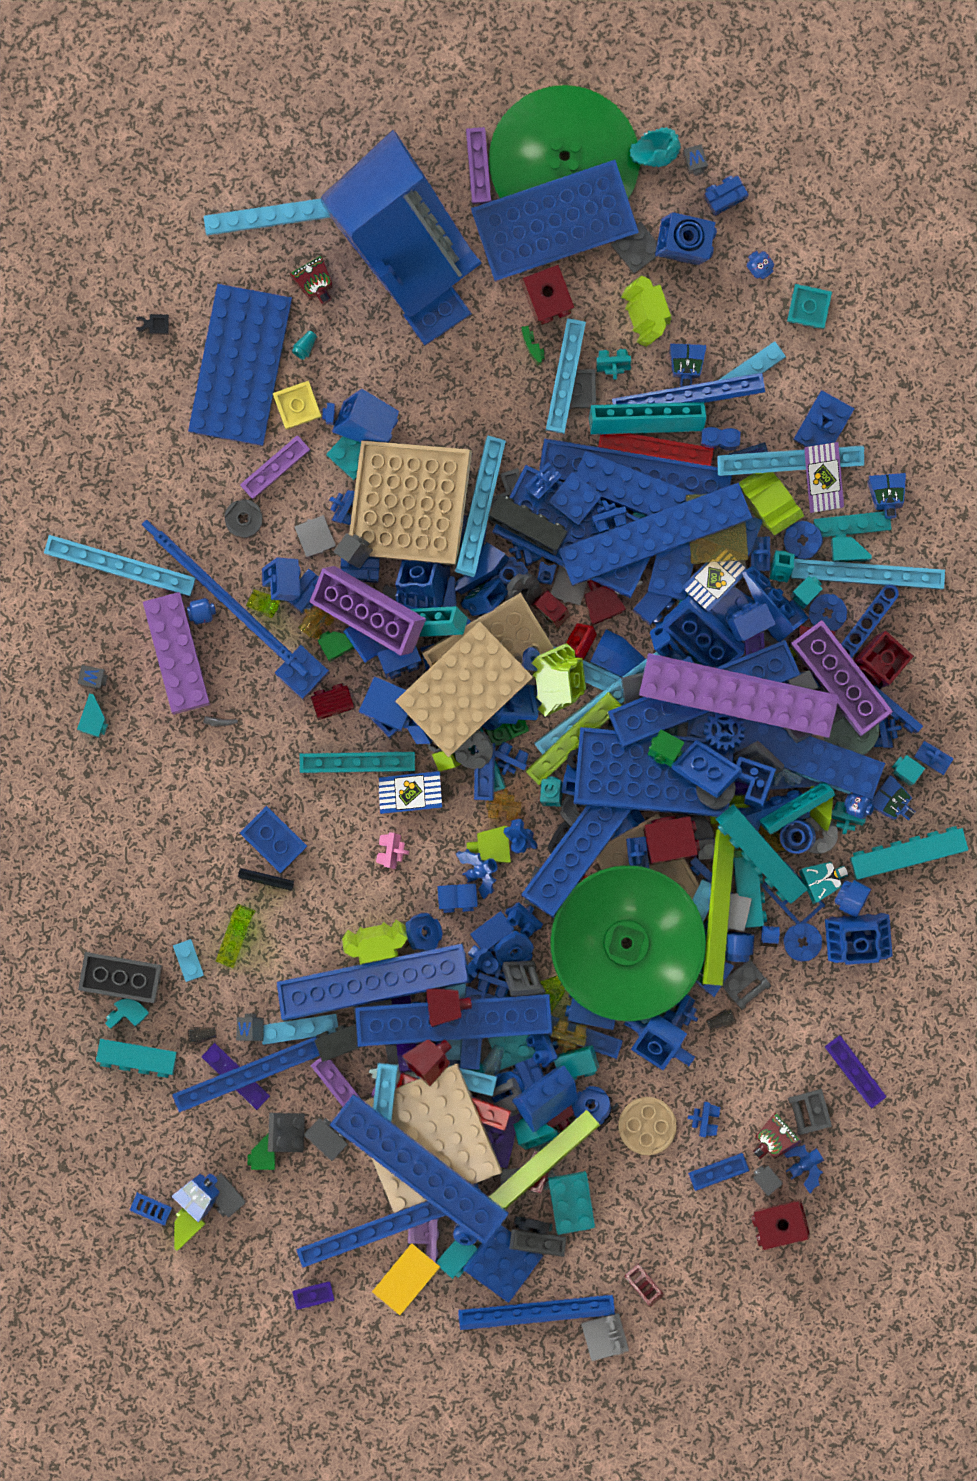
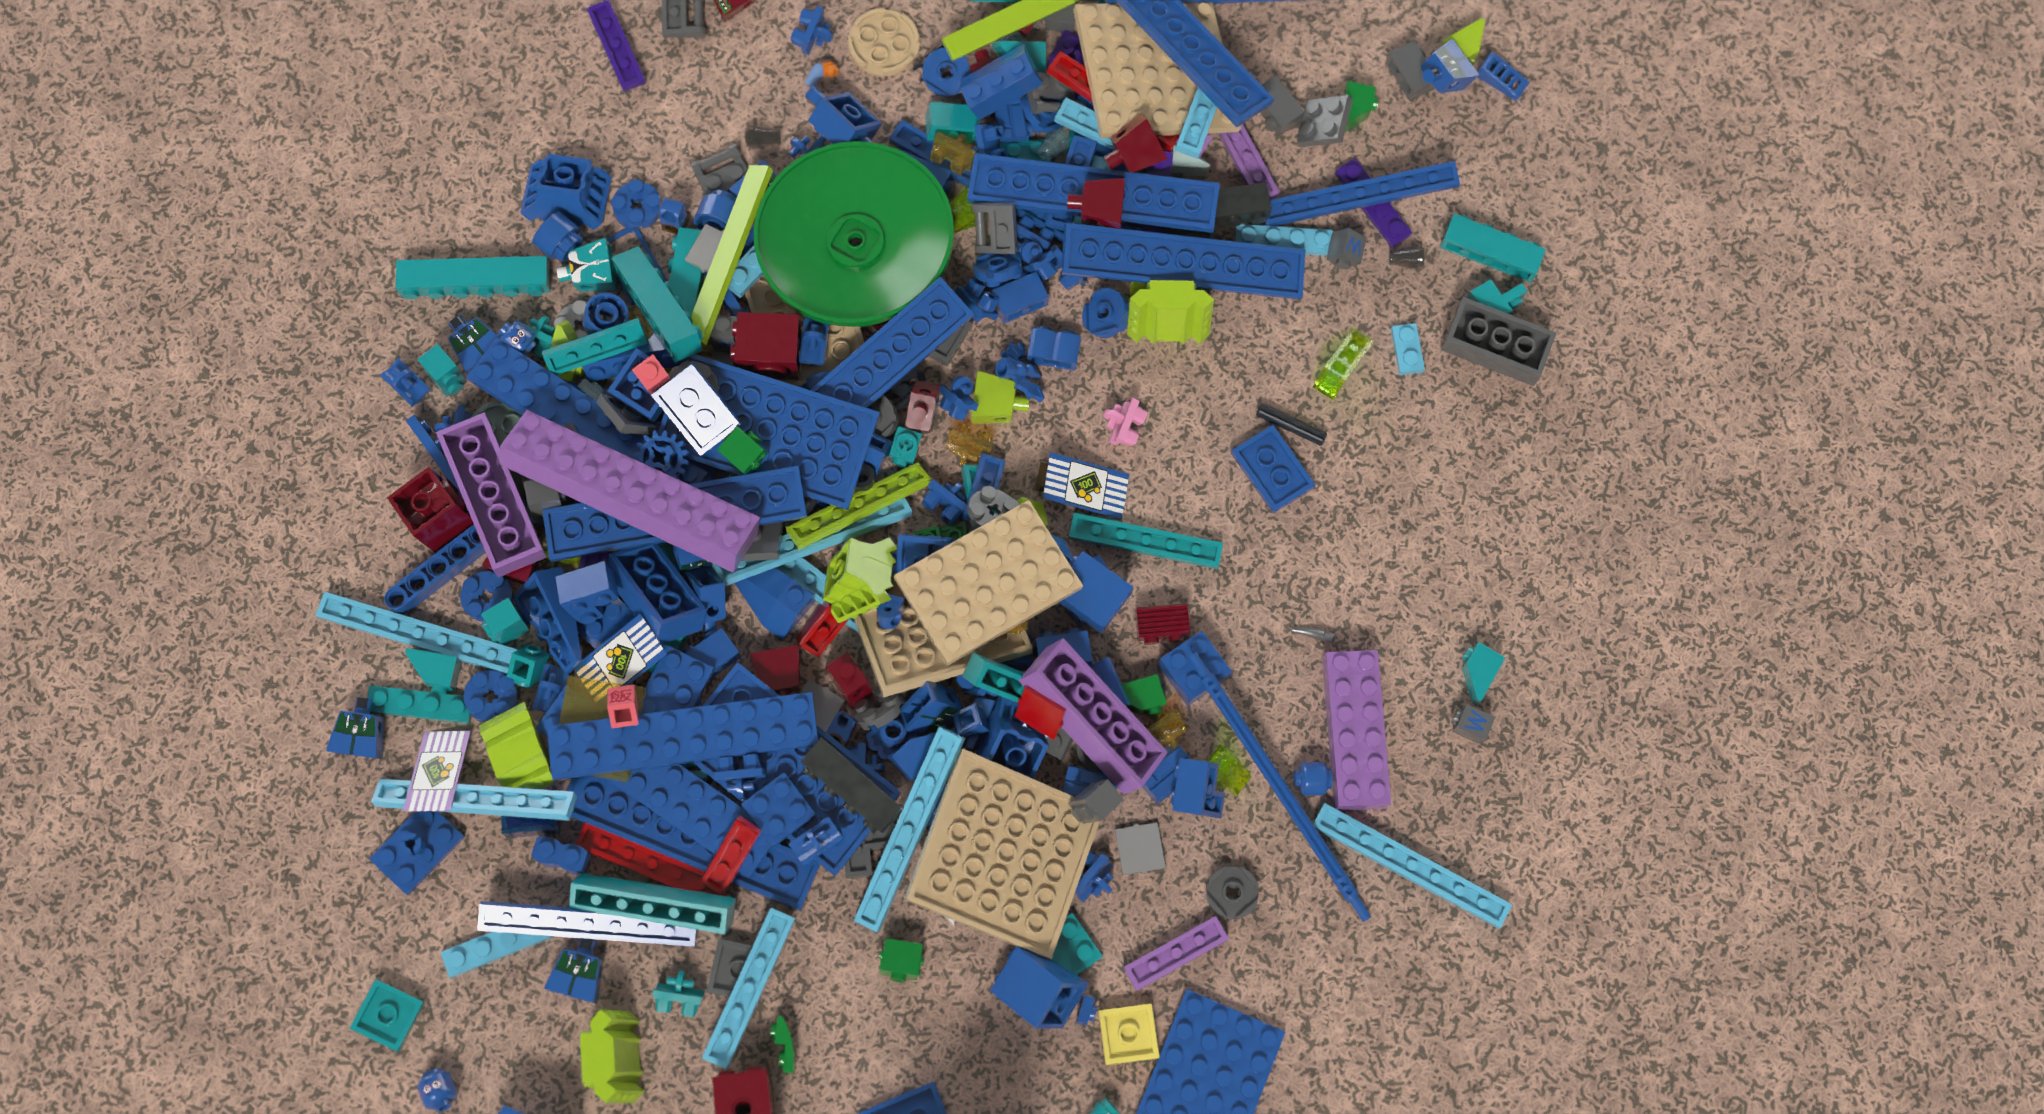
camera: 170 degrees left, 10 degrees down
(405, 602) = (1040, 712): none -> red piece
(454, 593) = (970, 721): none -> blue slope
(465, 419) = (901, 960): none -> green head
(544, 818) = (923, 406): none -> torso
(600, 460) = (731, 856): none -> red tile
(690, 1088) = (821, 70): none -> arm
(701, 541) = (622, 706): none -> coral brick
(744, 783) = (651, 374): none -> coral brick

